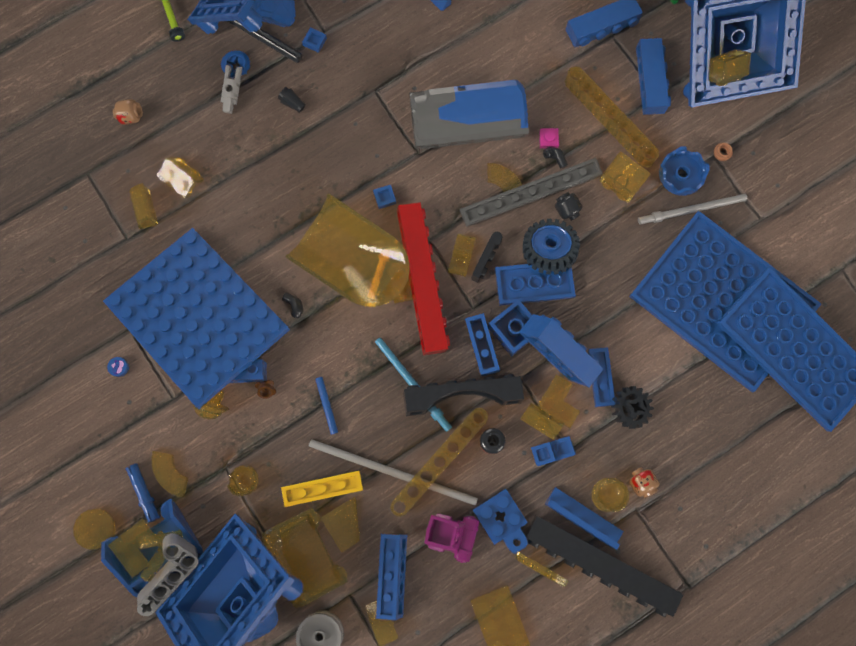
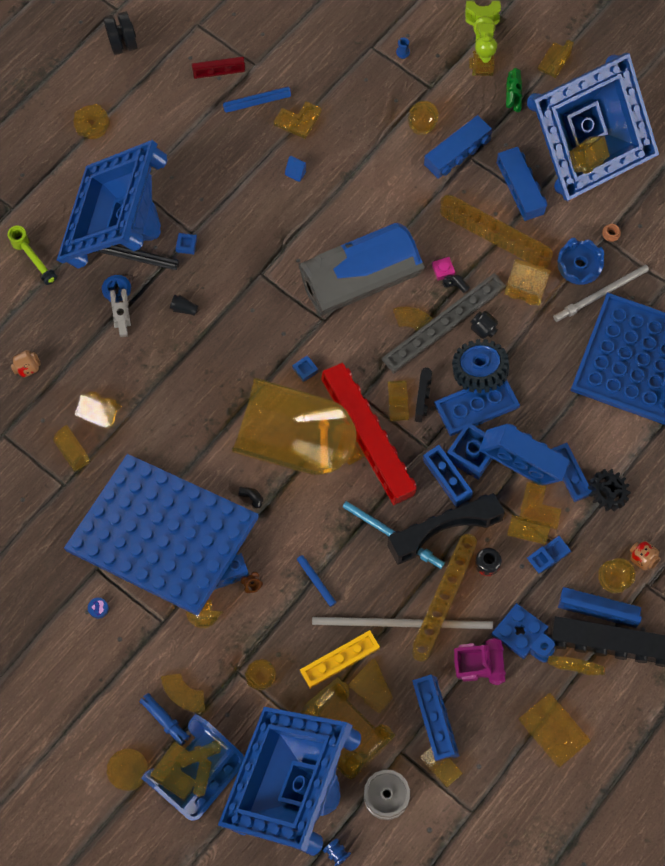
camera: 15 degrees left, 10 degrees down
(151, 597) = (215, 788): light grey beam -> none

